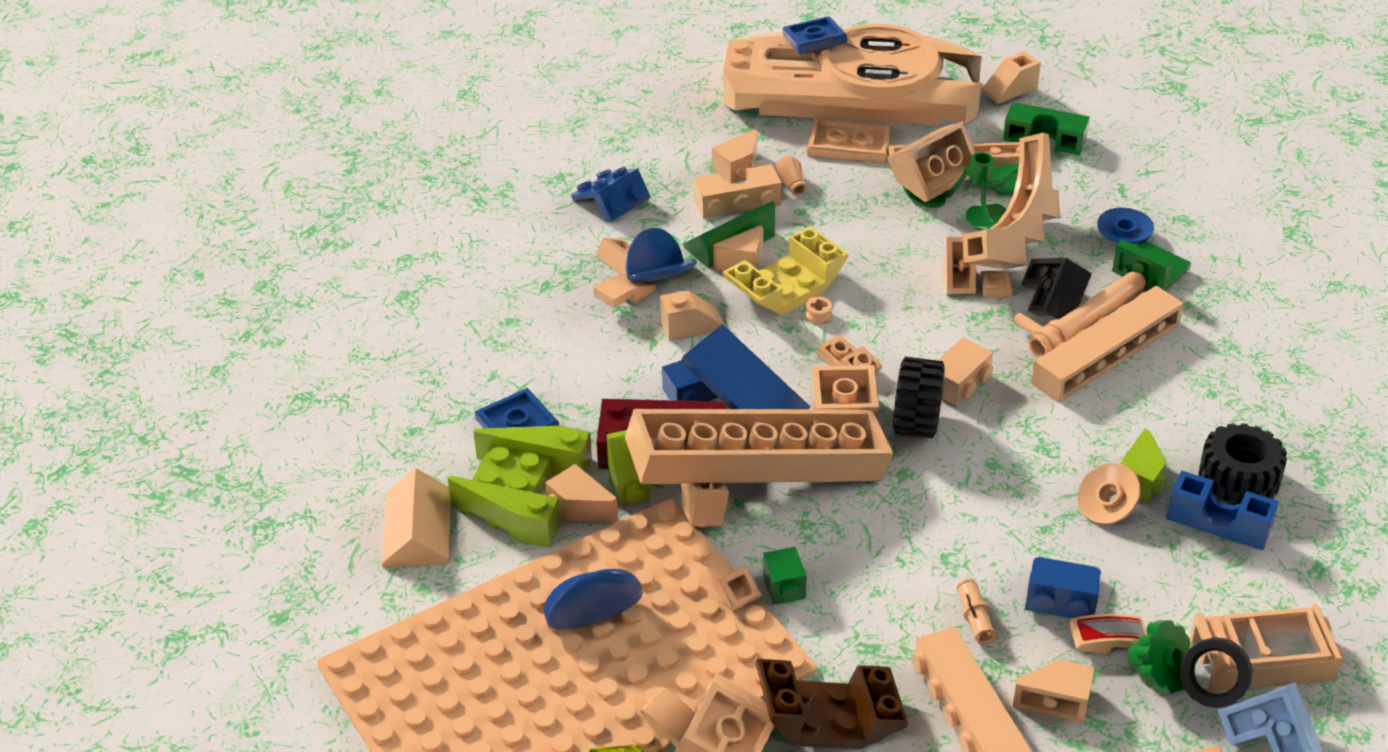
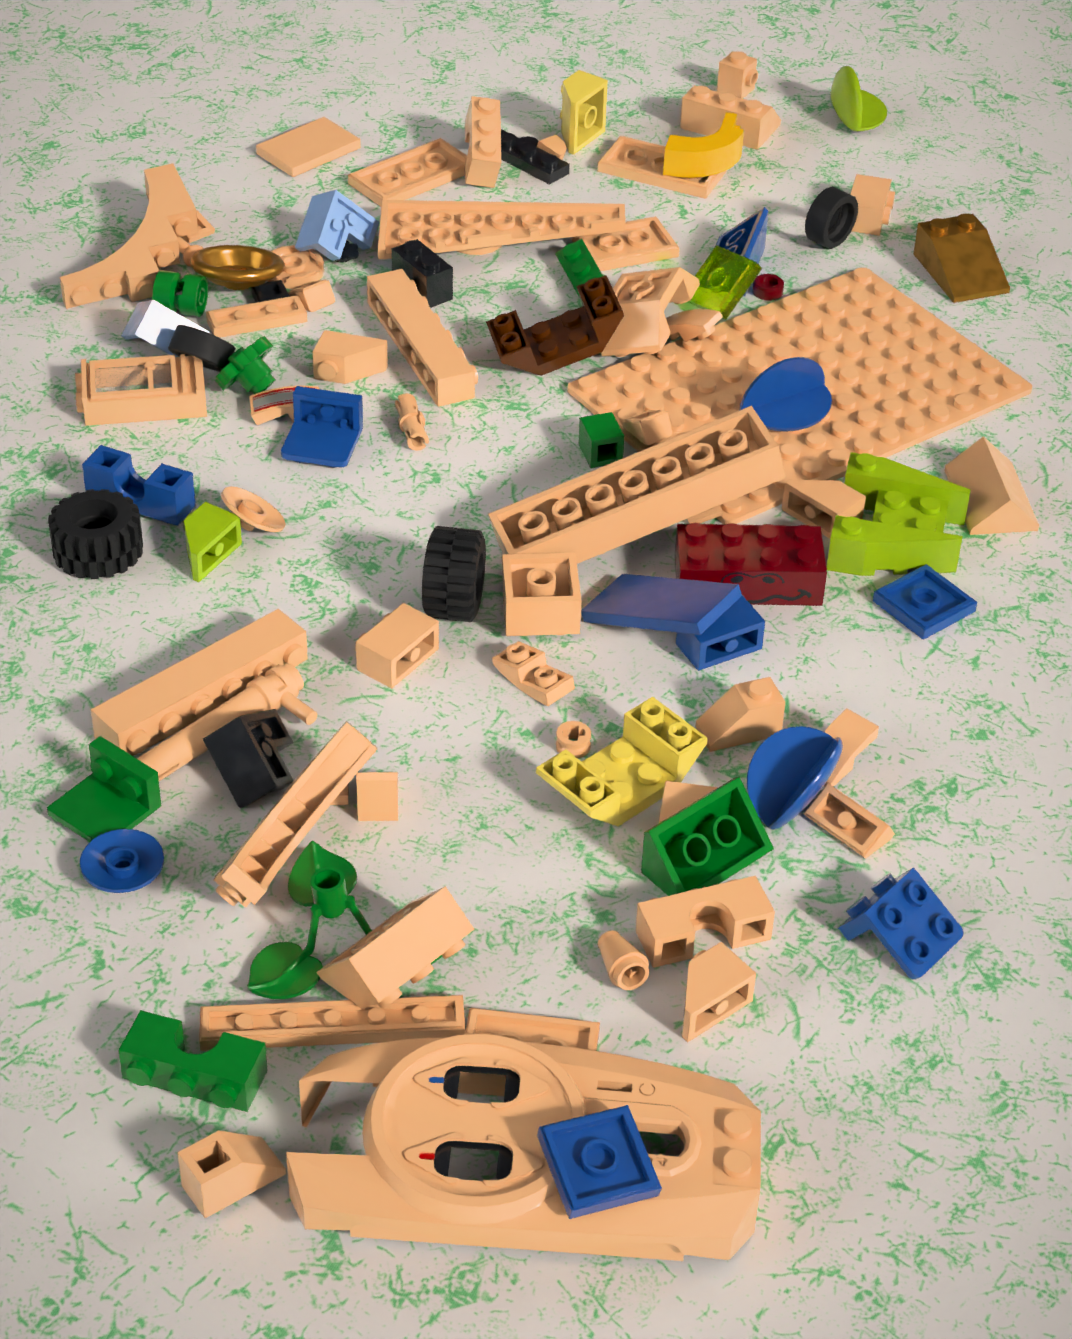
camera: 175 degrees right, 0 degrees up
(623, 472) = (781, 509): lime slope -> none

